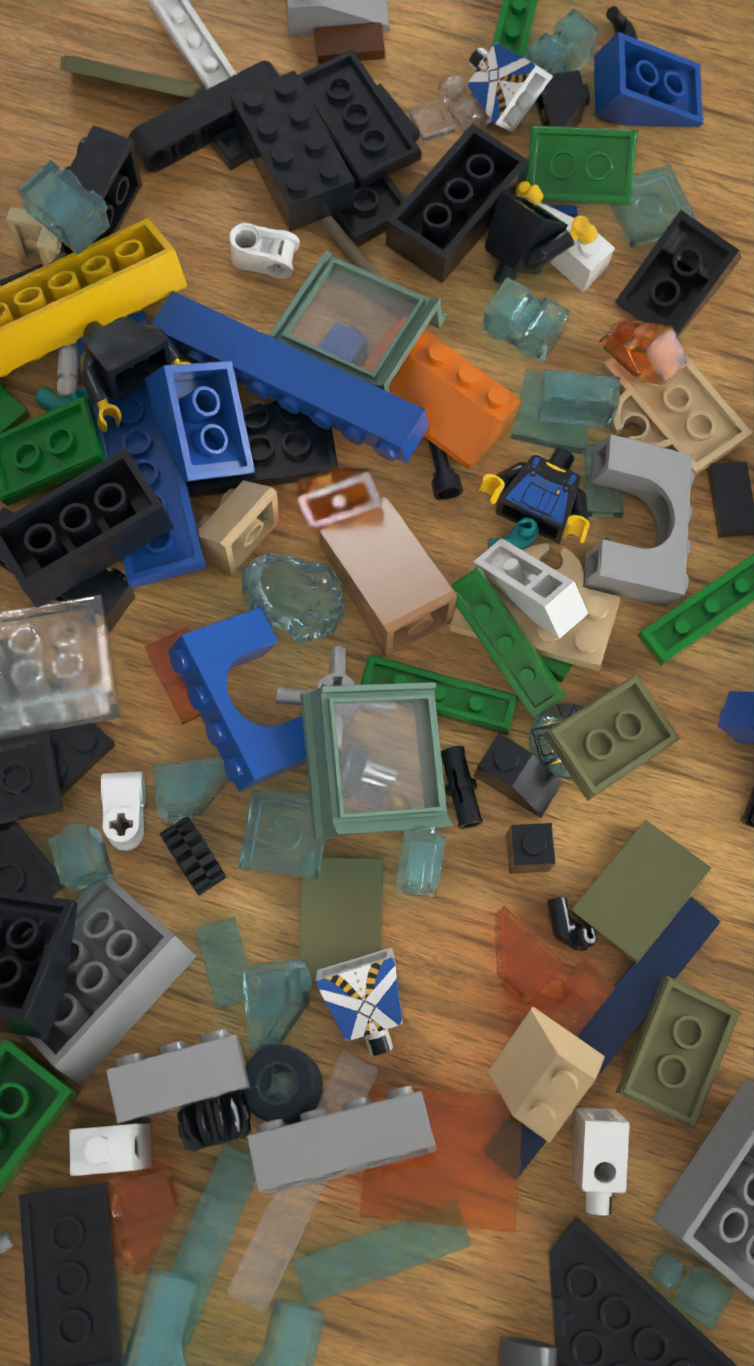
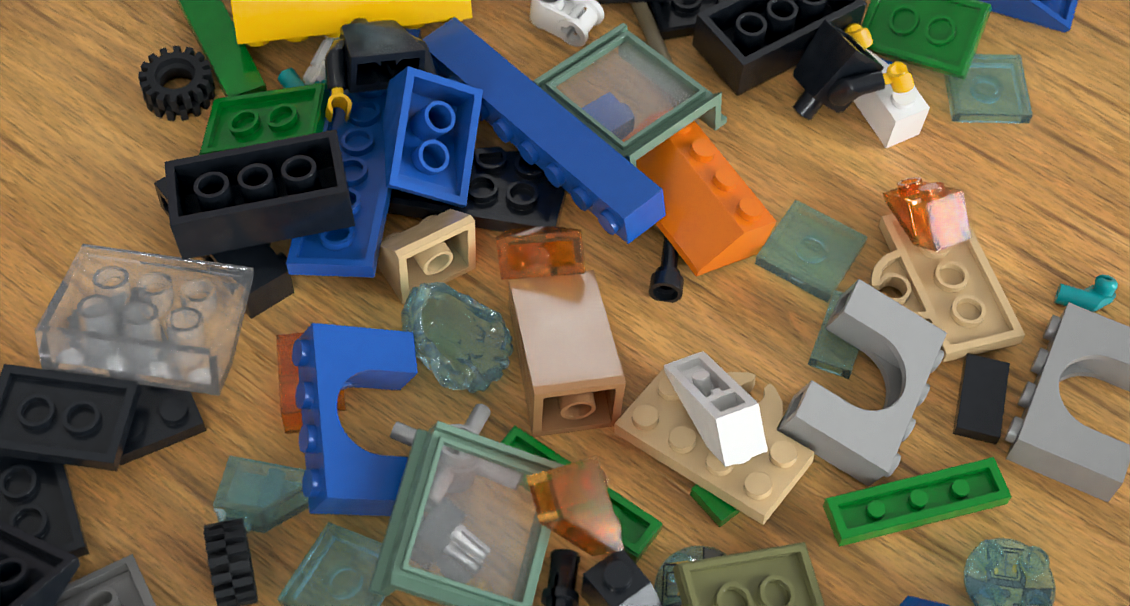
camera: 20 degrees right, 15 degrees down
(80, 856) = (113, 526): clear light blue brick -> none
(122, 802) = (182, 494): white piece -> none
(455, 713) = (577, 506): none -> clear orange slope
(506, 643) = (668, 459): green tile -> none
(521, 535) = (732, 356): teal arm -> none
(525, 320) = (811, 153): clear light blue brick -> none
(543, 492) = (762, 324): torso -> none
(578, 398) = (839, 239): clear light blue brick -> none
(679, 274) = (997, 156): black slope -> none

